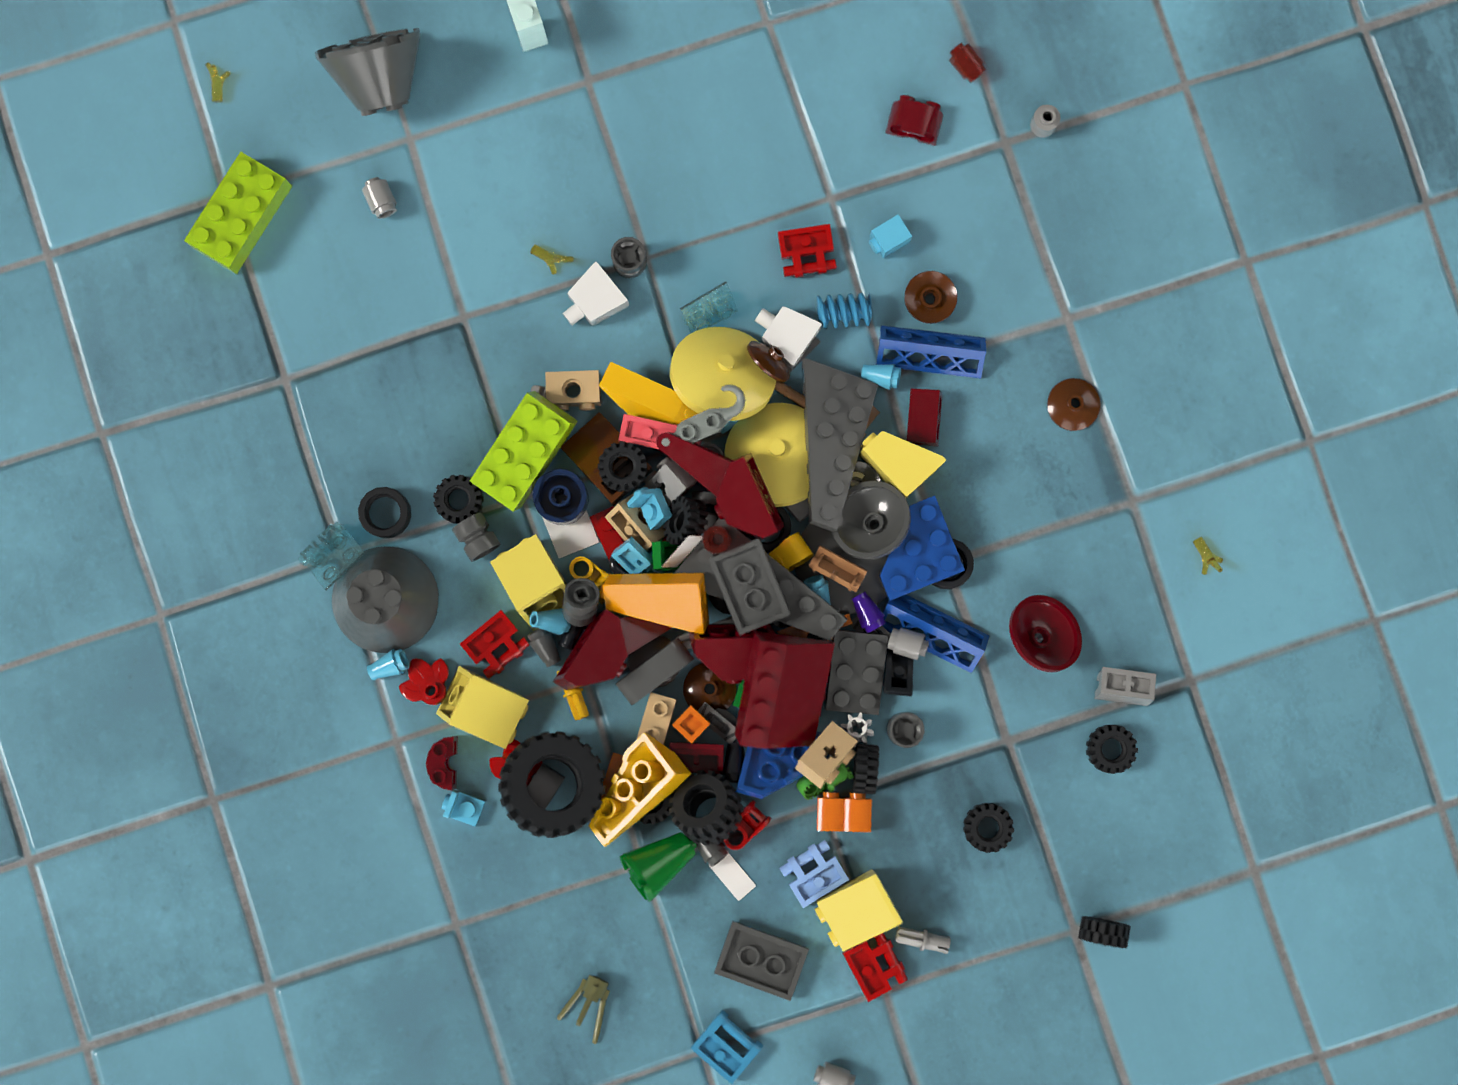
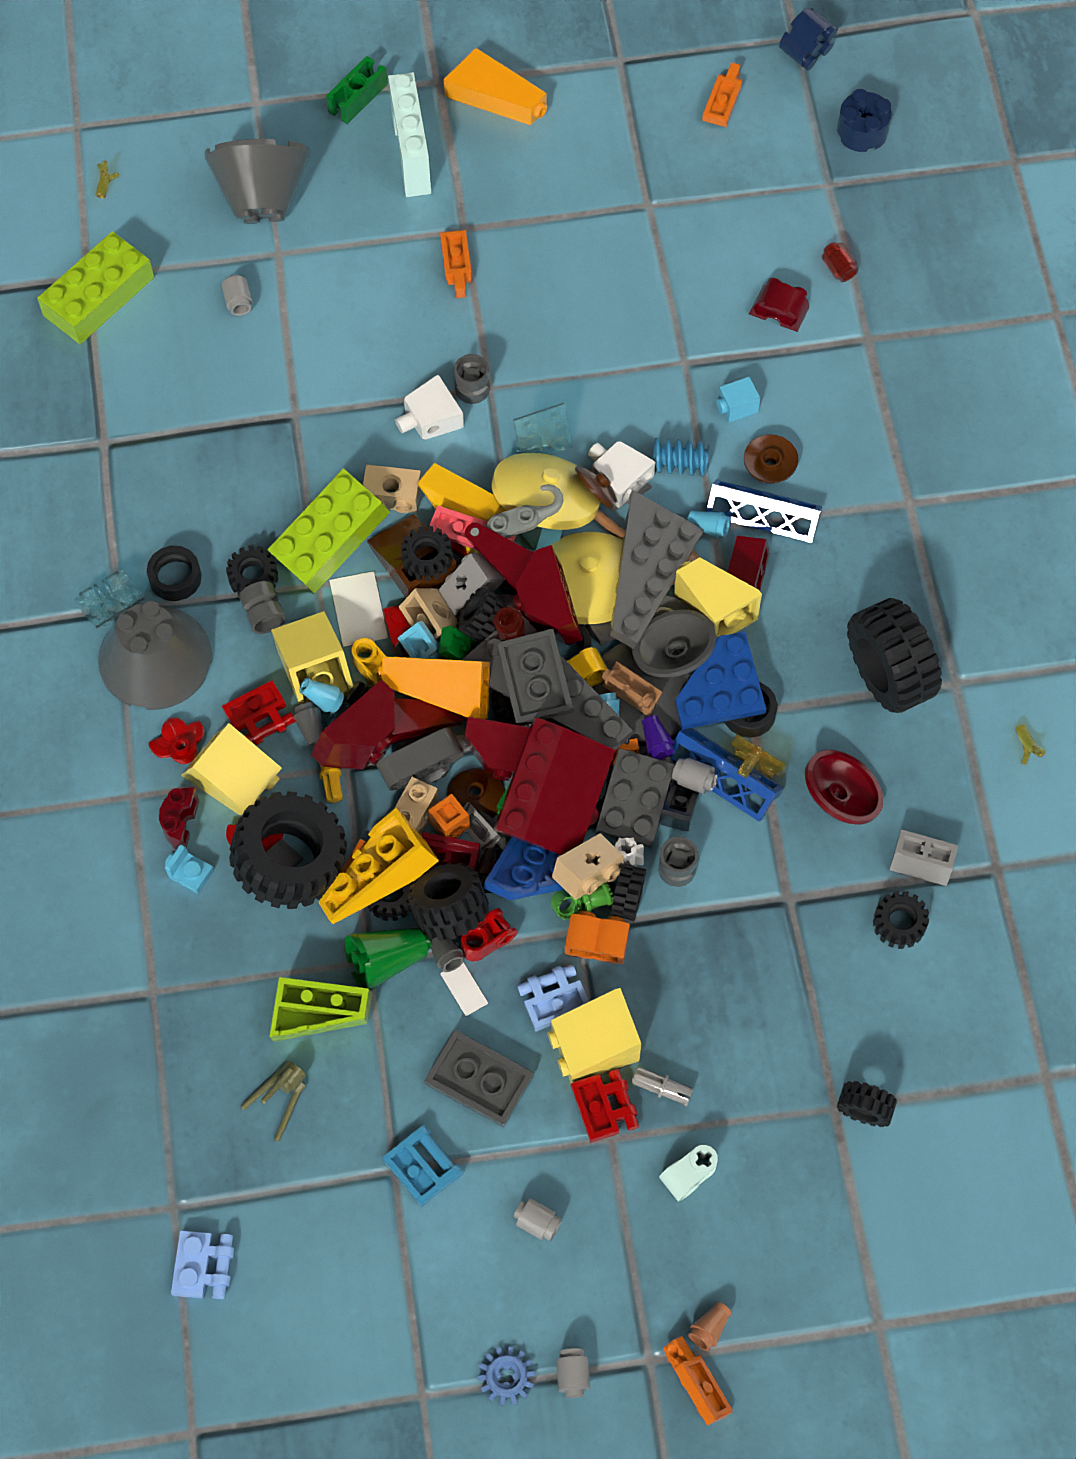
camera: 10 degrees right, 20 degrees down
(390, 664) = (143, 717): medium azure cone -> none
(549, 258) = (393, 372): clear yellow bar -> none
(554, 483) = (357, 581): dark blue brick -> none
(580, 602) = (356, 673): dark grey wheel -> none
(588, 121) = (456, 260): none -> orange hinge
(607, 923) = (316, 1008): none -> lime wedge
(652, 505) = (449, 596): medium azure bracket -> none
(682, 551) = (472, 636): white sticker -> none
(806, 242) = (652, 393): red plate -> none
(955, 1017) = (685, 1174): none -> light aqua piece
(965, 616) = (755, 754): none -> clear yellow plate
(988, 844) = (753, 996): black tyre -> none
(1045, 128) = (909, 319): light grey brick -> none
(1064, 413) = (912, 591): reddish brown dish -> none
(1078, 502) = (894, 655): none -> black tyre

